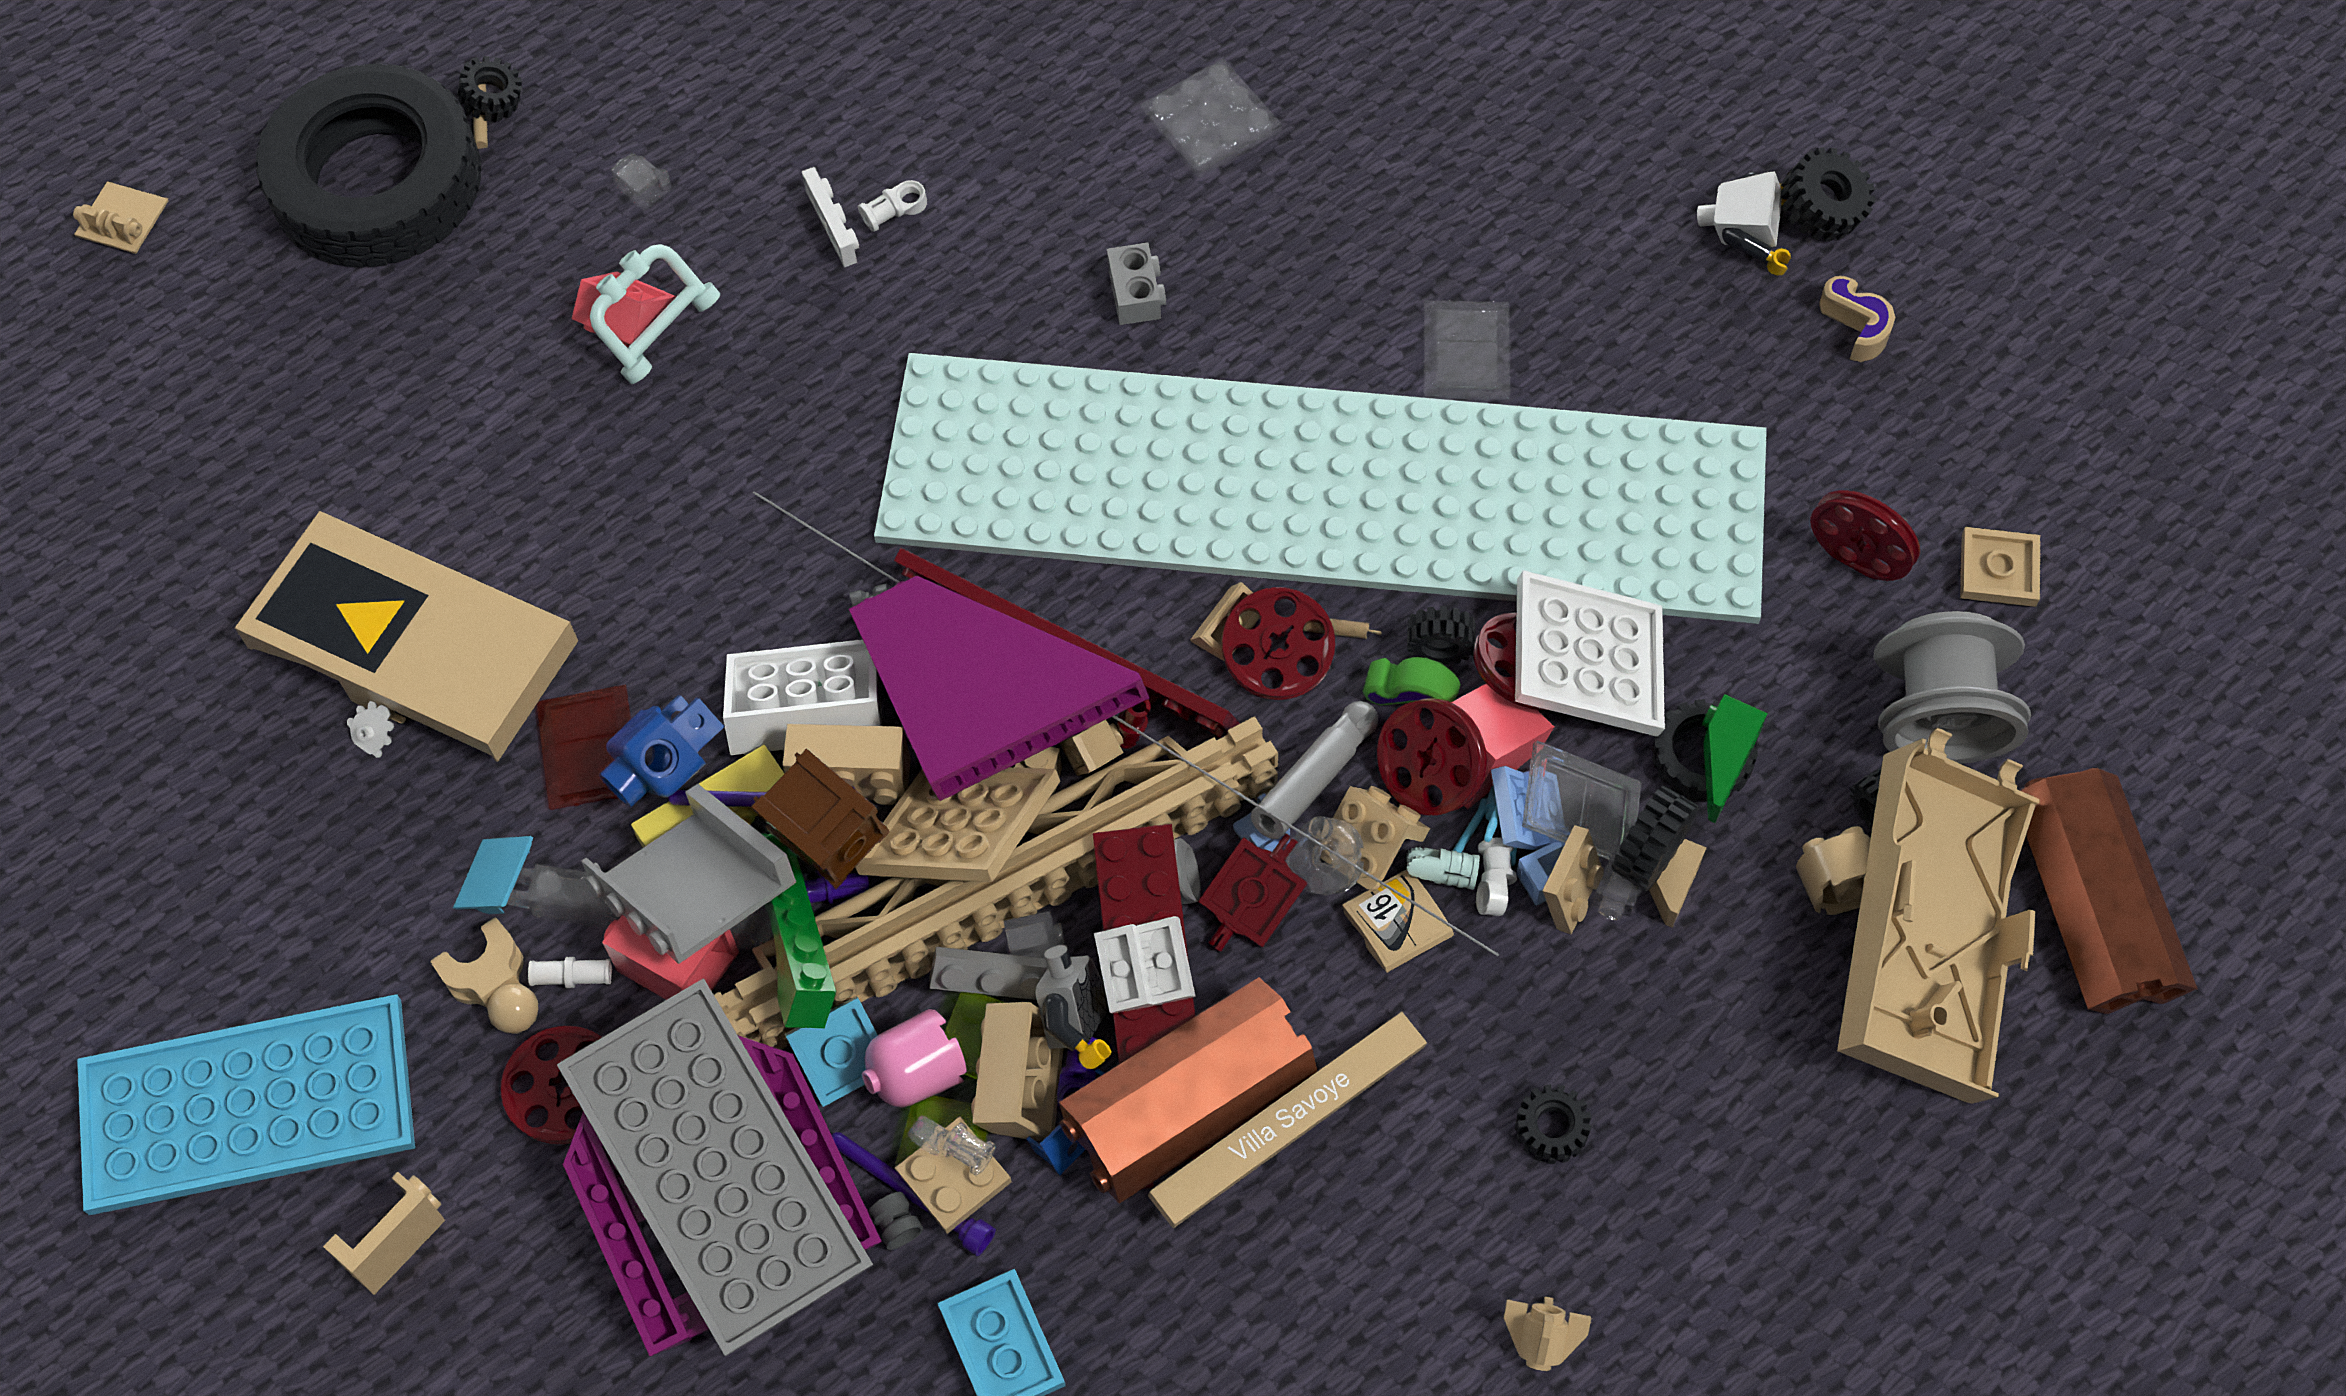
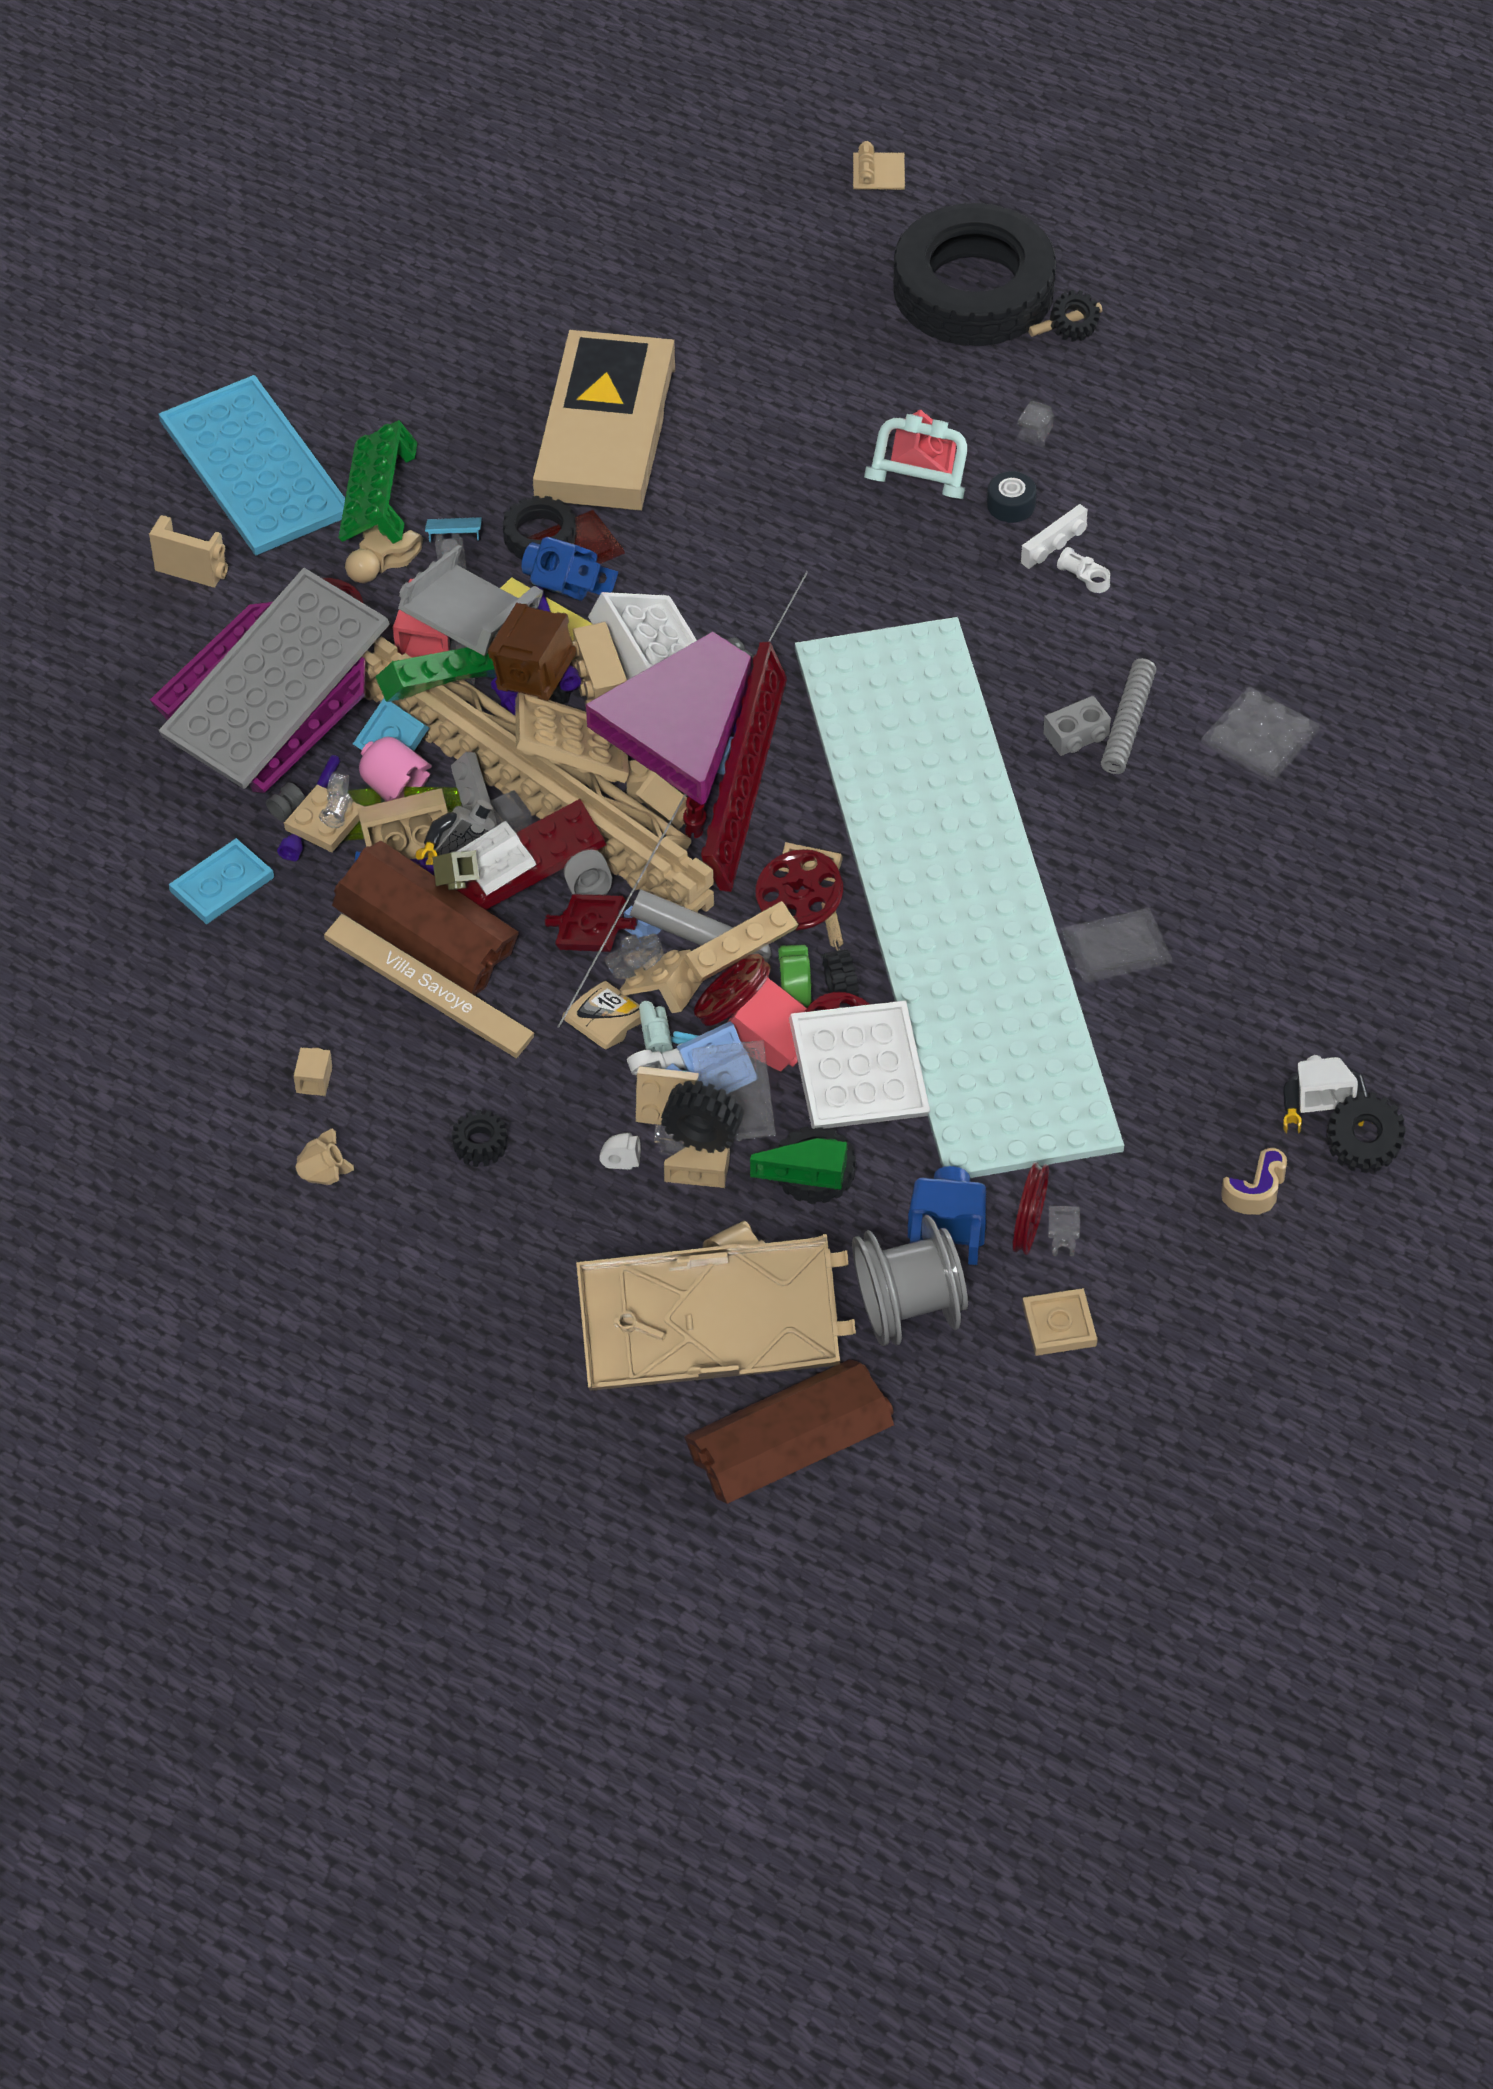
camera: 70 degrees right, 10 degrees down
(371, 728) = (534, 432): white piece -> none
(377, 951) = (372, 480): none -> green bracket
(533, 741) = (536, 509): none -> black tyre
(569, 972) = (396, 579): white pin -> none
(745, 240) = (1011, 497): none -> black wheel
(1137, 229) = (1128, 716): none -> light grey piece
(1155, 1017) = (456, 869): none -> olive brick
(1360, 725) = (741, 941): none -> tan plate
(1379, 1304) = (313, 1071): none -> tan brick
(1621, 959) = (621, 1152): none -> white piece
(1828, 622) = (953, 1205): none -> blue piece

